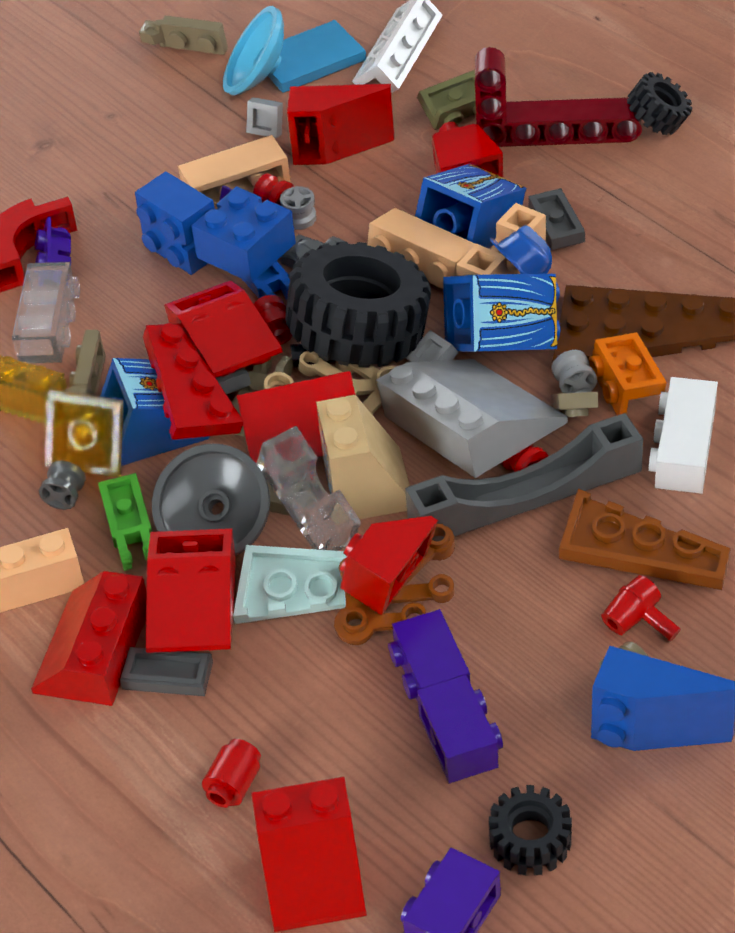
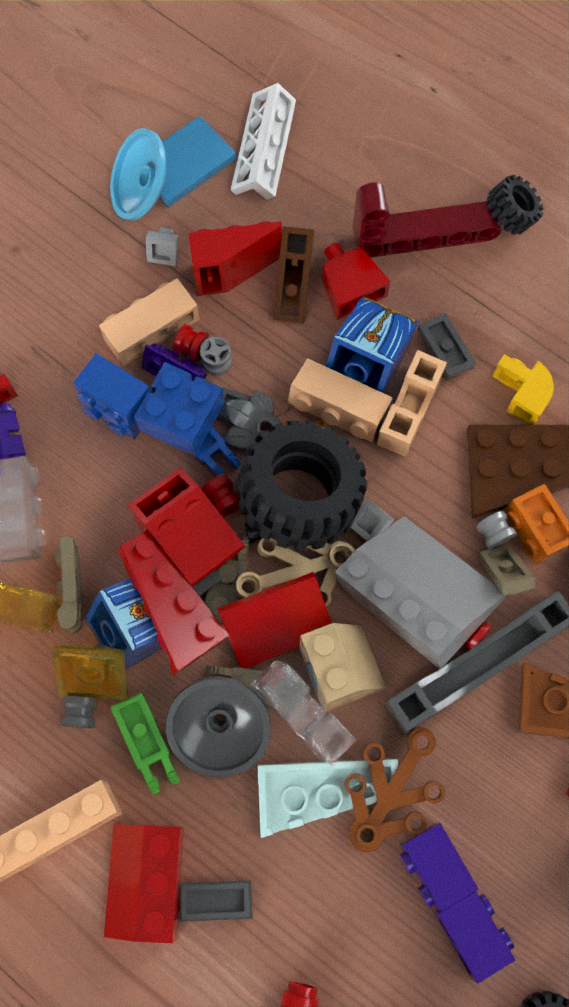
camera: 15 degrees left, 25 degrees up
(185, 34) = (63, 147): dark tan hinge -> none
(190, 590) = (222, 830): red slope -> none
(385, 559) = (395, 797): red slope -> none
(402, 143) = (293, 274): none -> reddish brown slope
(449, 100) = (329, 210): olive bracket -> none
(501, 312) = (426, 480): blue slope -> none
(526, 251) = (438, 413): blue piece -> none
(638, 257) = (532, 387): none -> yellow brick

